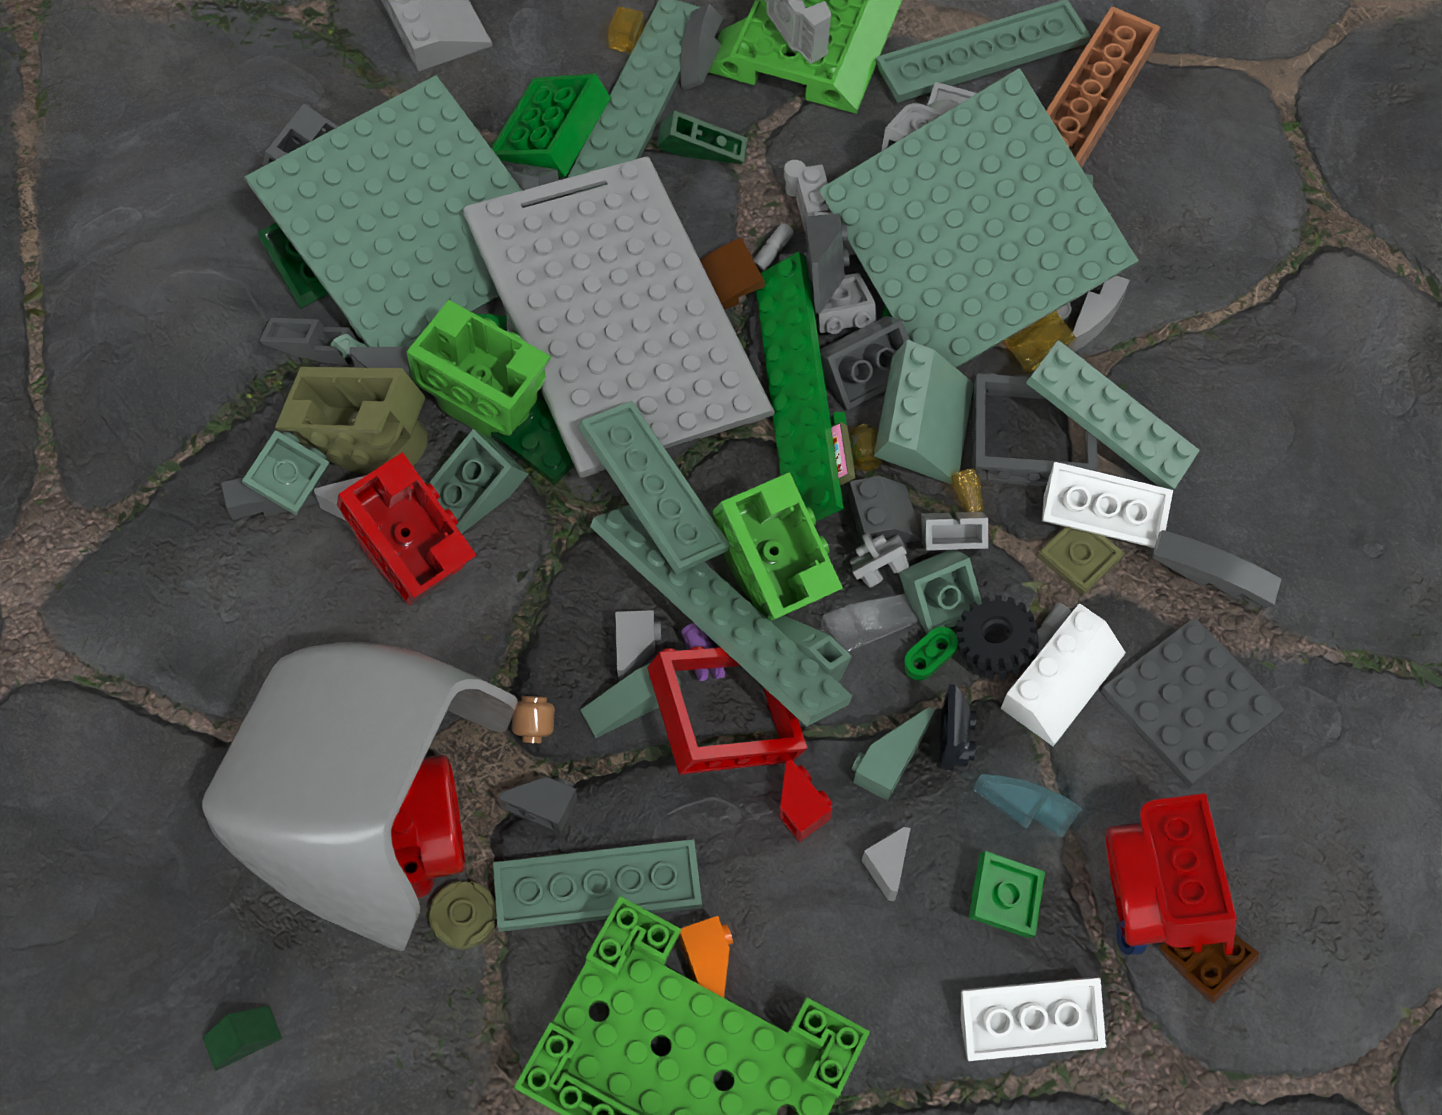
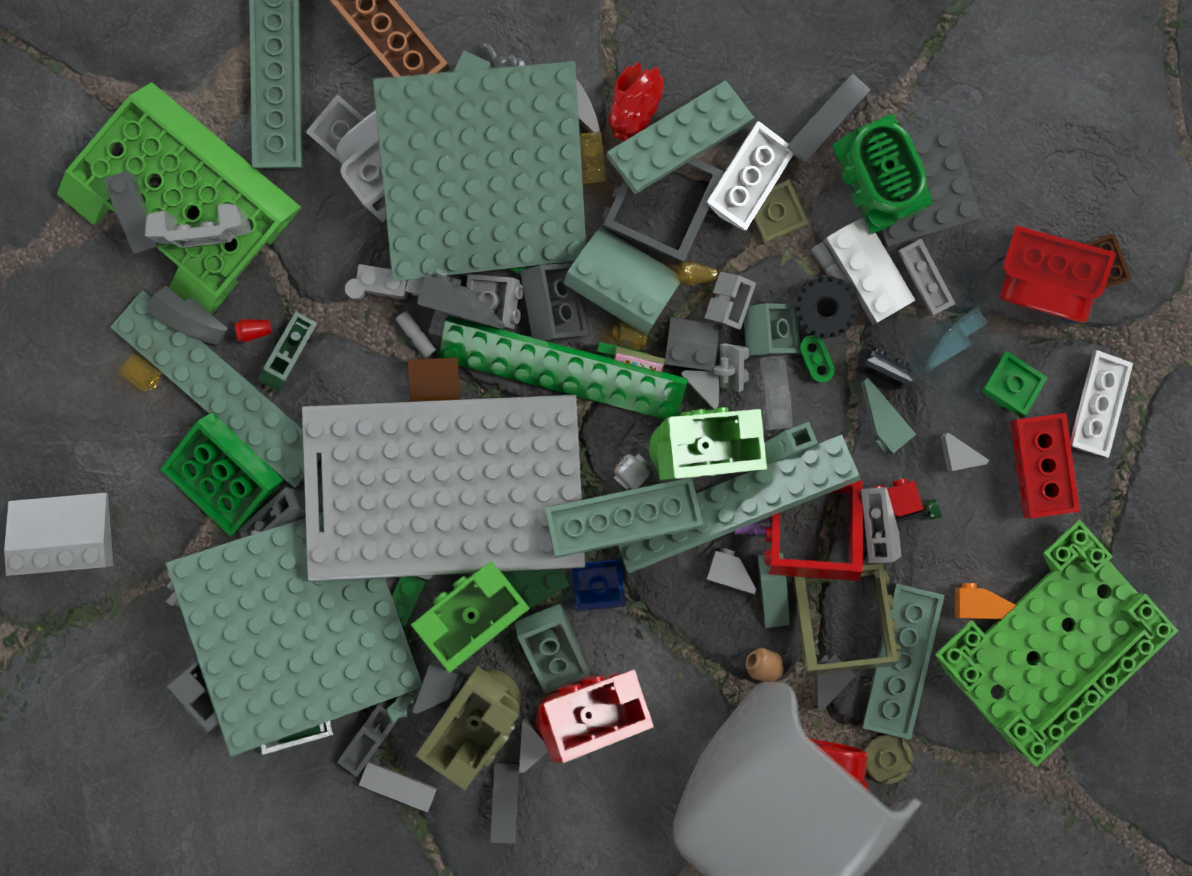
camera: 70 degrees left, 25 degrees up
(260, 386) = (398, 786): none -> light grey tile
(286, 471) = (501, 790): sand green plate -> none
(563, 508) = (599, 585): none -> clear blue slope
(605, 739) = (888, 625): none -> olive window
(711, 106) = (252, 329): none -> red cone
(711, 493) = (631, 471): none -> light grey head
(754, 790) = (880, 526): none -> light grey slope
(803, 851) = (930, 511): none -> dark green hinge
(845, 538) = (705, 385): none -> light grey slope
(918, 991) = (1060, 469): none -> red brick
(1088, 744) = (926, 277): none -> light grey plate
(1128, 359) = (634, 100): none -> red head
(1185, 629) = (883, 173): none -> green brick

